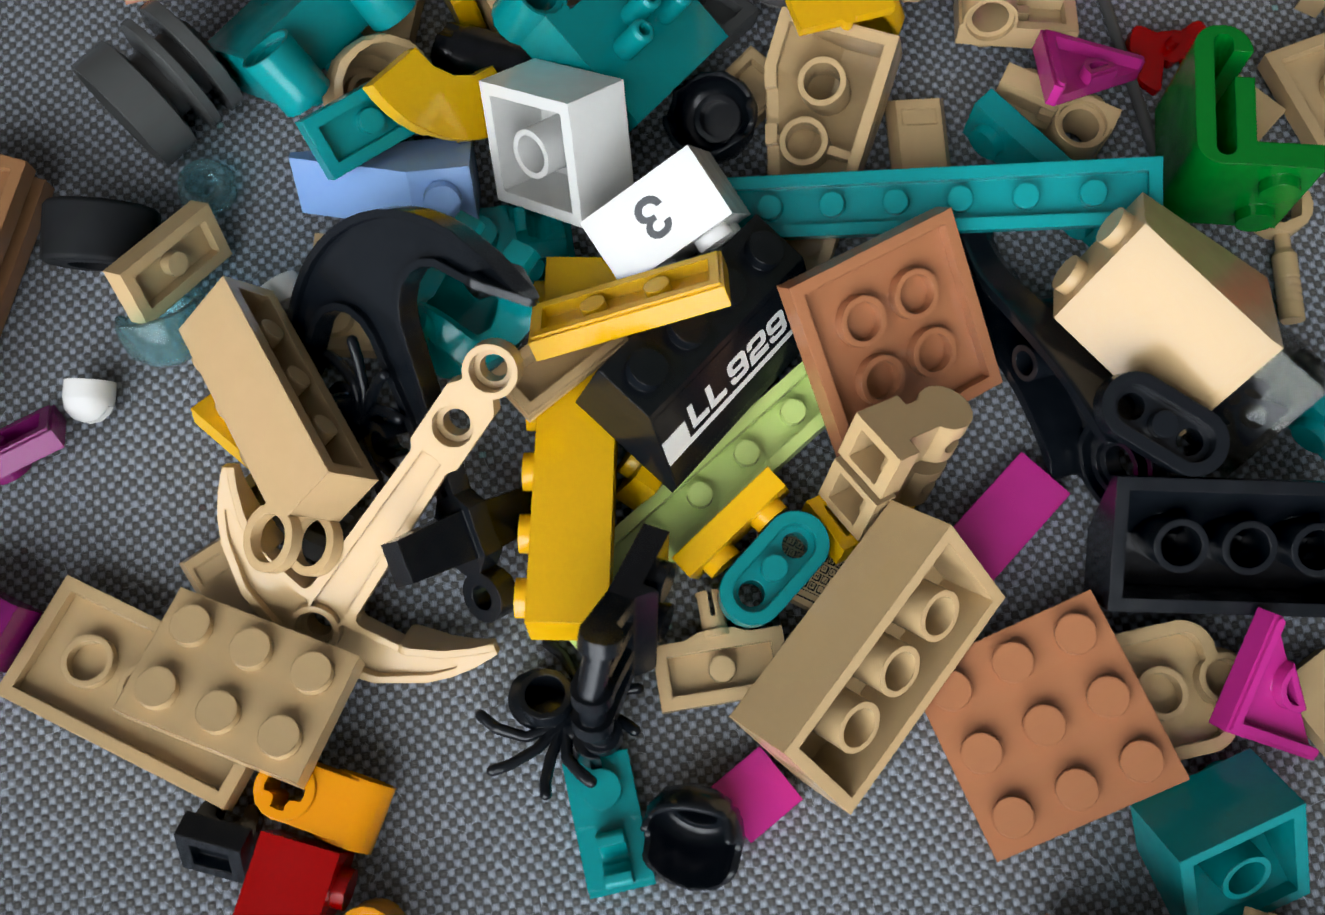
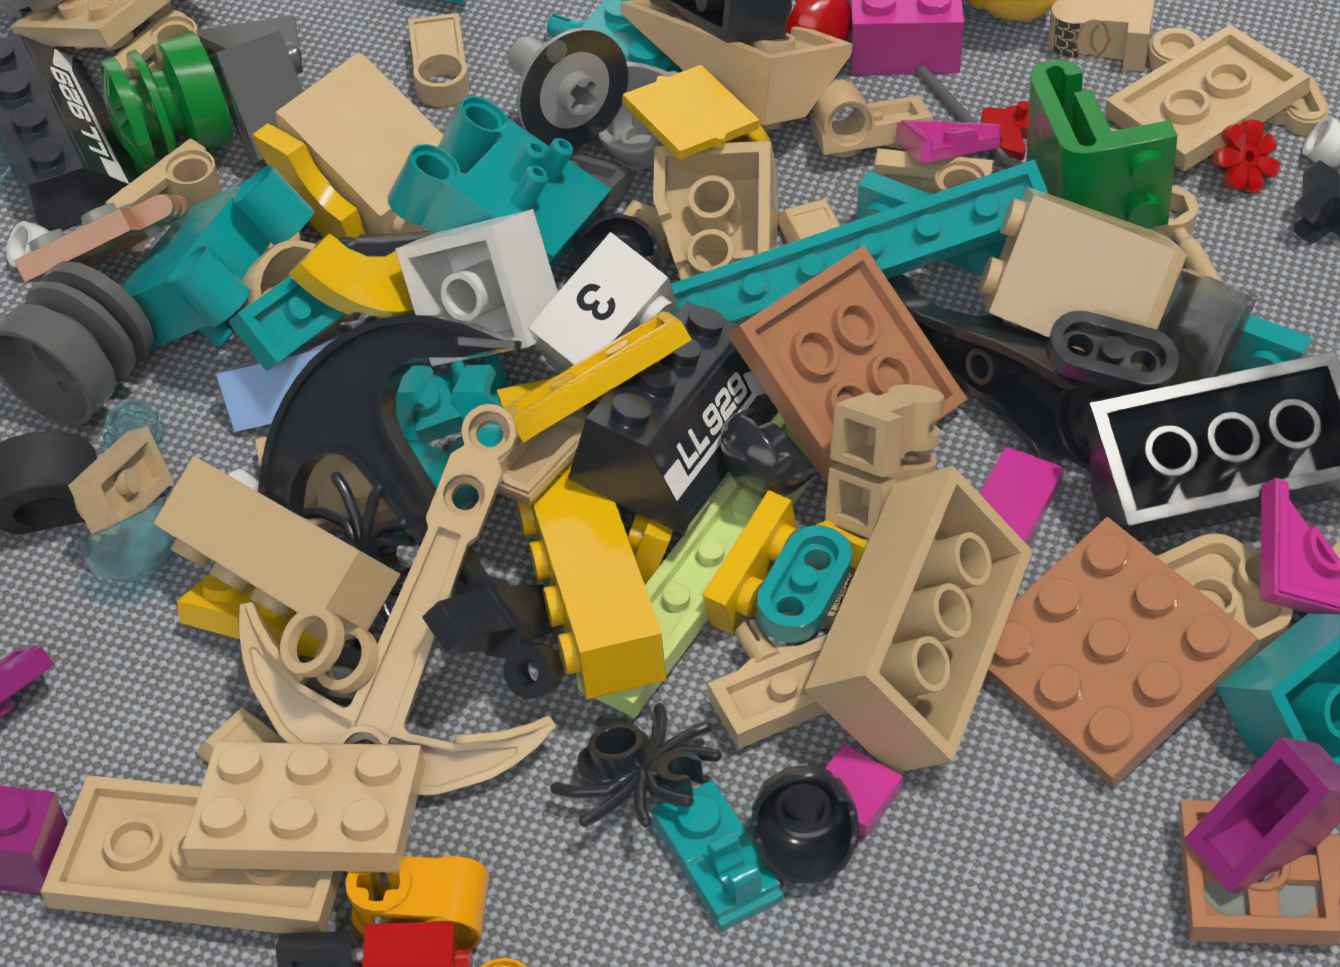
camera: 15 degrees left, 25 degrees down
(88, 399) = (62, 627): white hinge -> none
(621, 640) = (681, 652): black plate -> none
(779, 420) = (763, 456): none -> black hair

